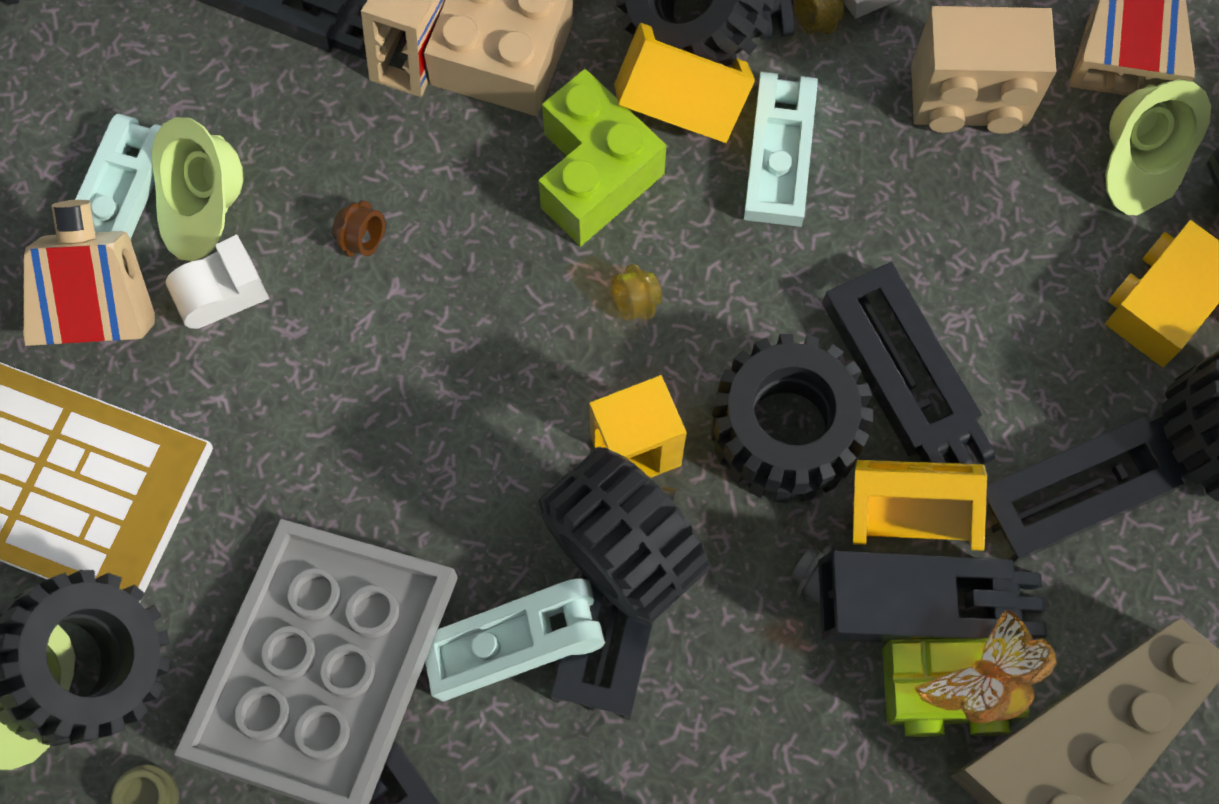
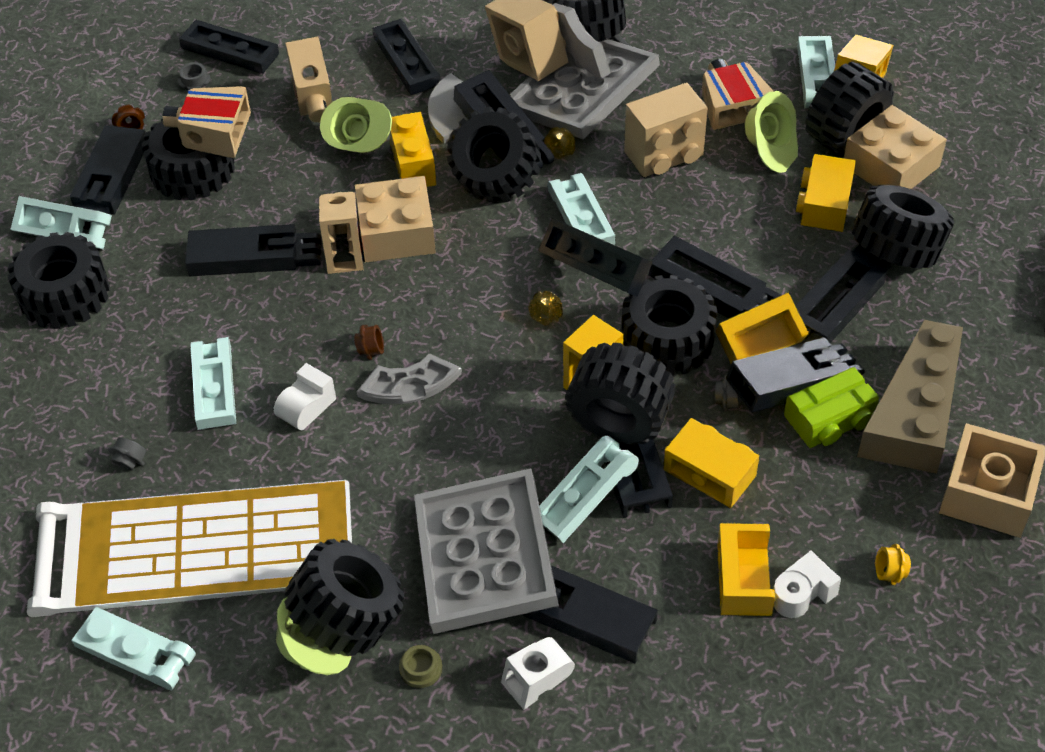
camera: 25 degrees left, 20 degrees down
(83, 283) = (228, 422): torso -> none
(187, 171) = (258, 340): yellowish green piece -> none
(379, 324) = (409, 383): none -> light grey tile
(606, 159) = (487, 249): lime brick -> none
(682, 86) = (512, 195): yellow panel -> none
(722, 684) = (711, 462): none -> yellow brick
(741, 256) = (595, 257): none -> black plate
(999, 682) = (853, 377): clear orange animal -> none

